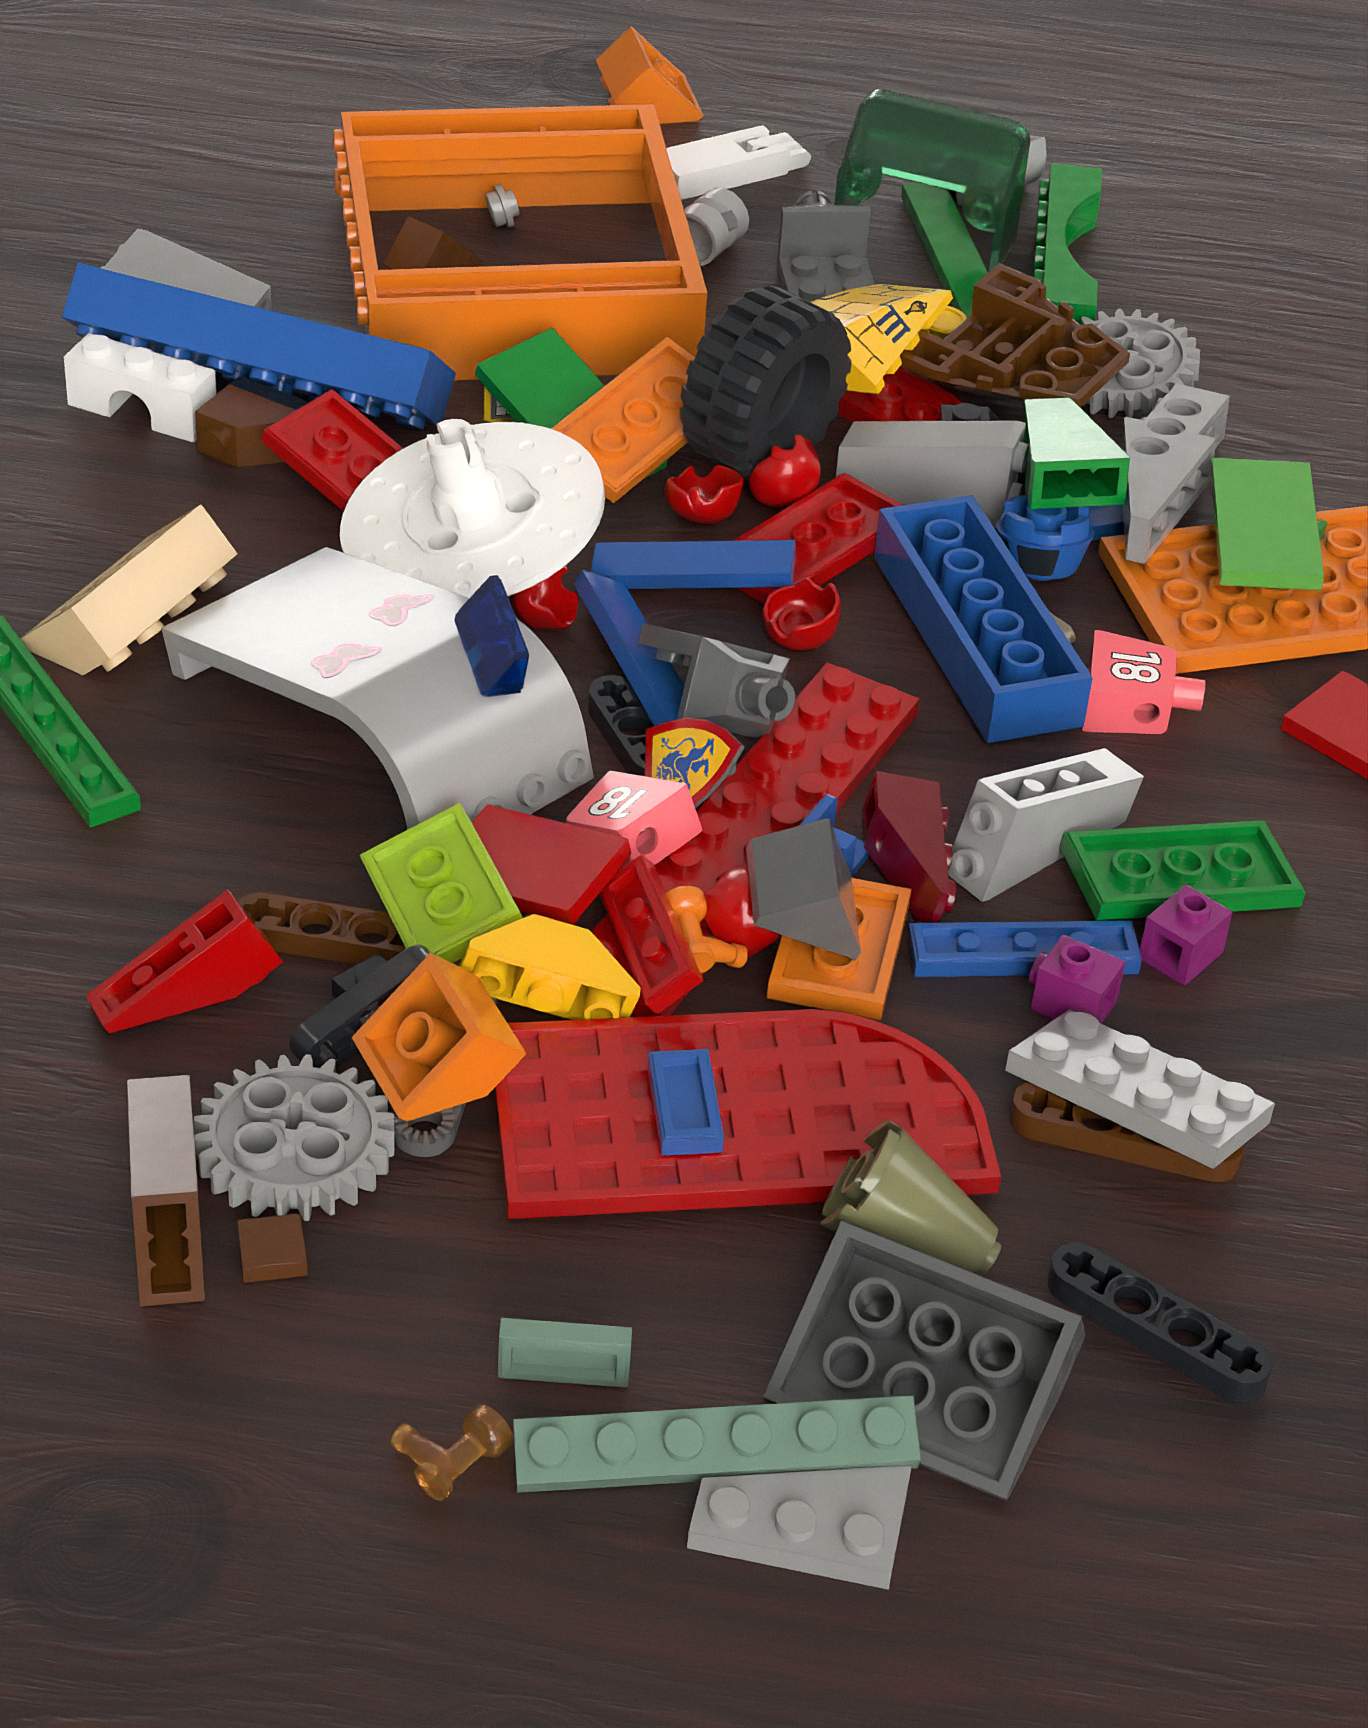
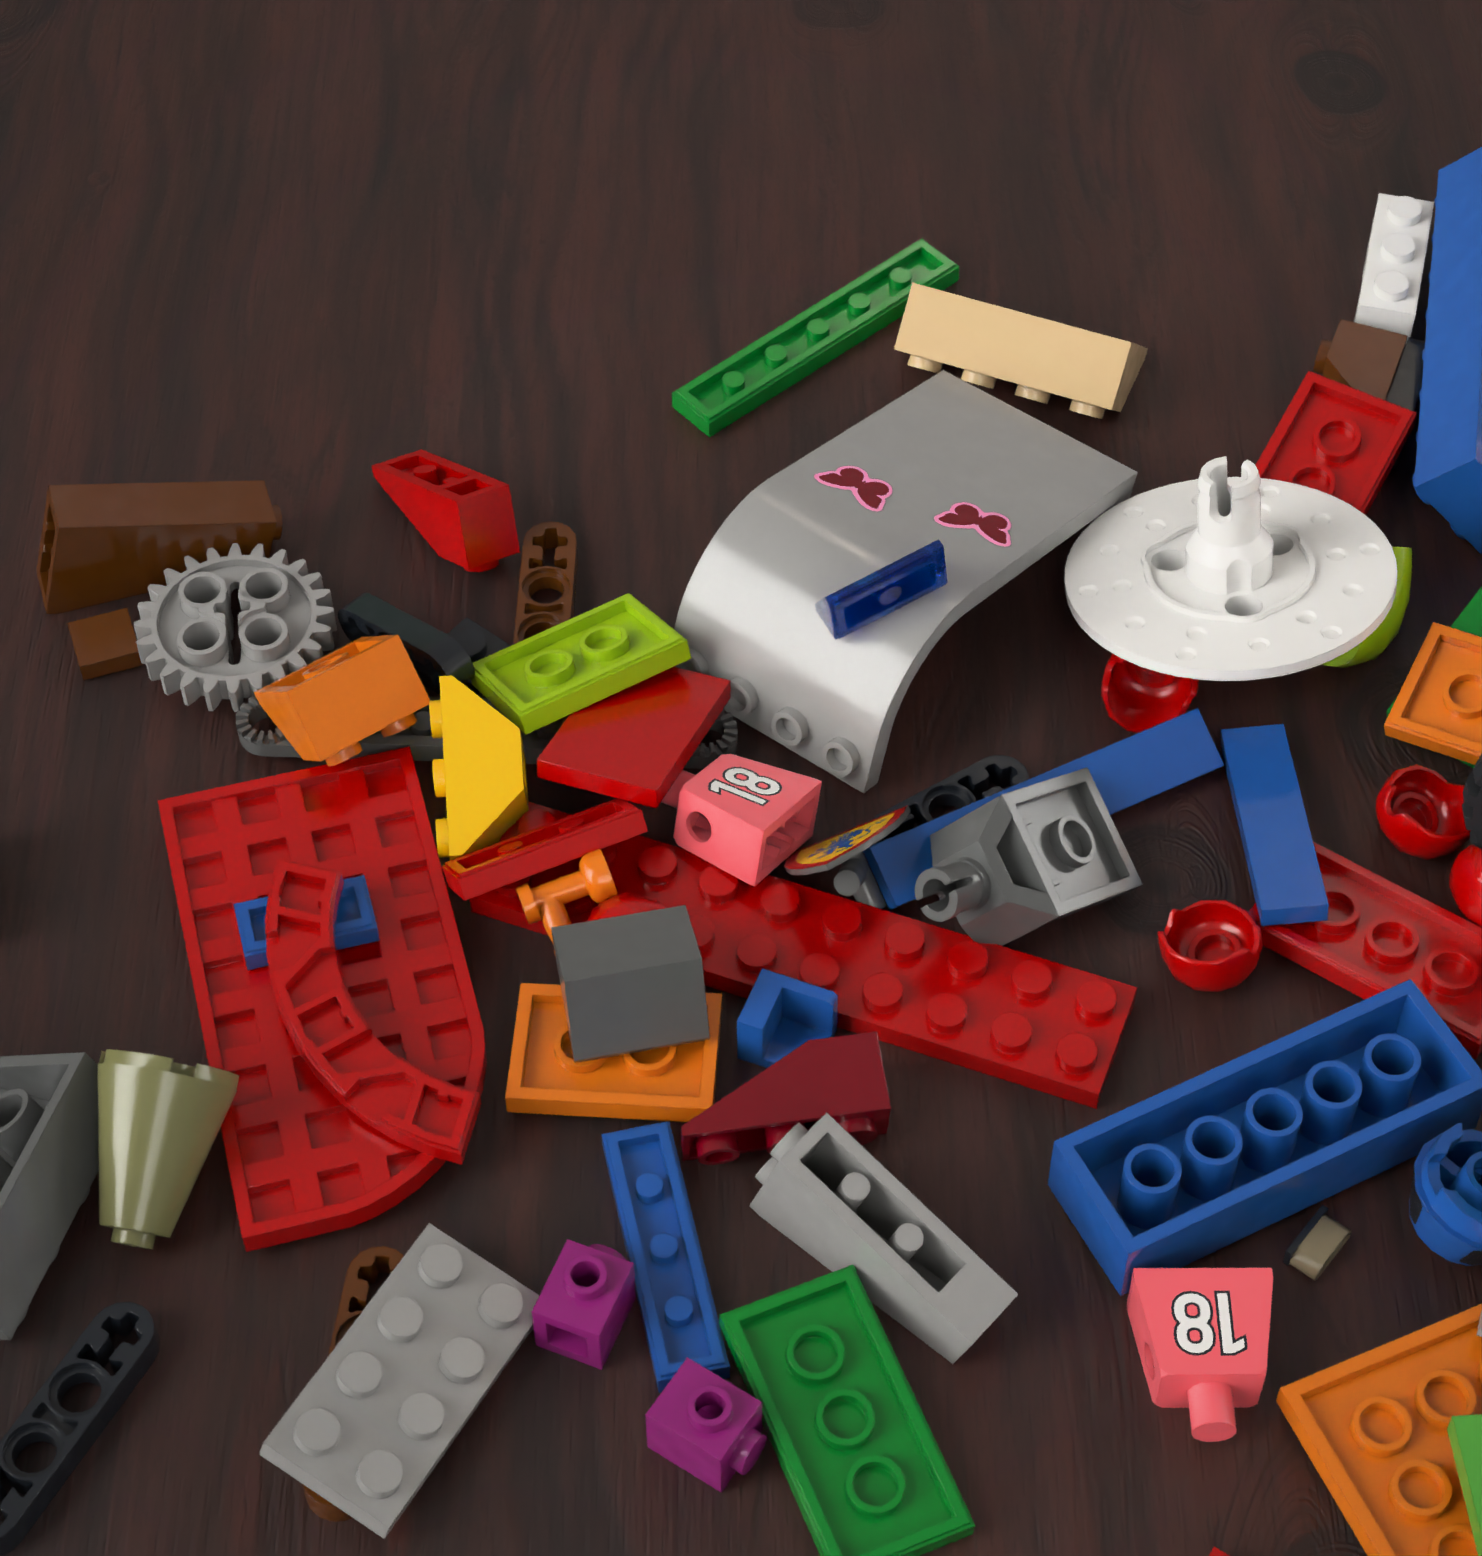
camera: 85 degrees right, 10 degrees up
(800, 1088) = (336, 1037): none -> red tile

